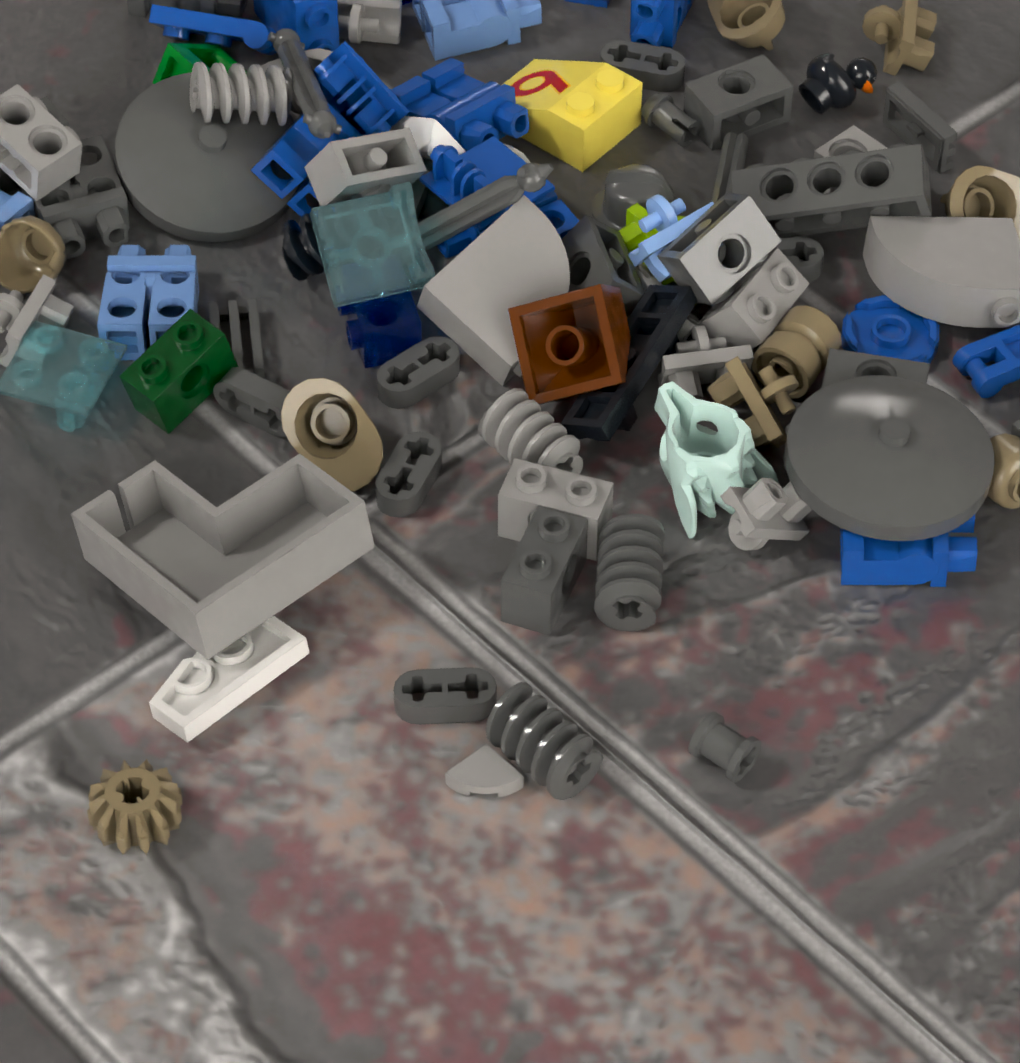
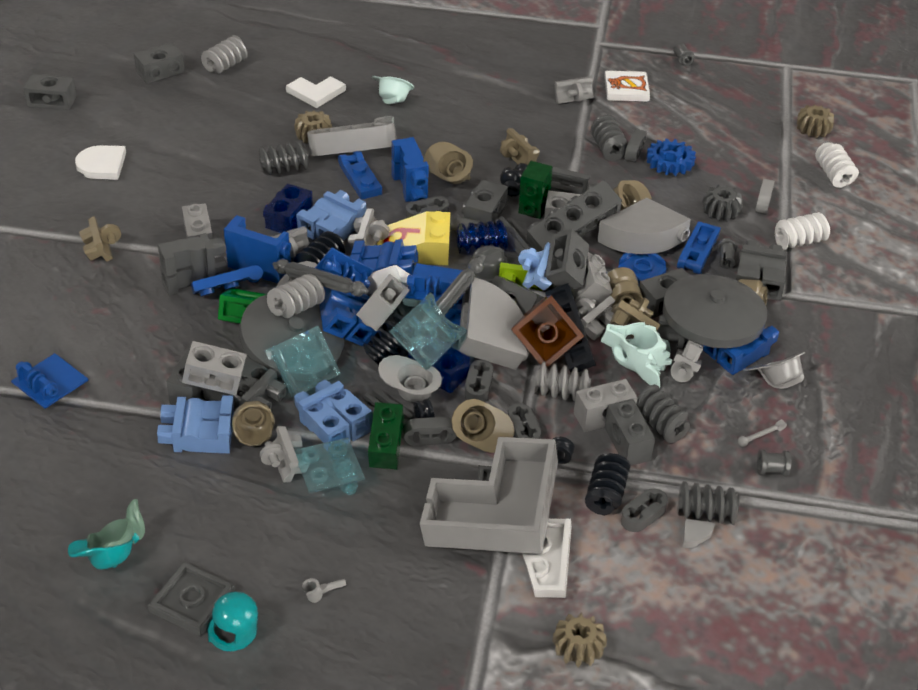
camera: 40 degrees left, 5 degrees down
(175, 200) = (304, 360): none -> clear light blue piece
(283, 368) = (424, 409): none -> black bush
(299, 305) = (409, 377): none -> light grey piece
(395, 50) = (319, 247): none -> black piece
(416, 537) = (564, 449): none -> black bush
(422, 618) = (607, 483): none -> black piece
(502, 53) = (369, 229): none -> light grey hips
(672, 155) = (480, 235): none -> clear blue piece
(815, 702) = (743, 441): none -> light grey hinge
(829, 103) = (534, 189): none -> dark green brick
(911, 622) = (781, 373): none -> light grey piece

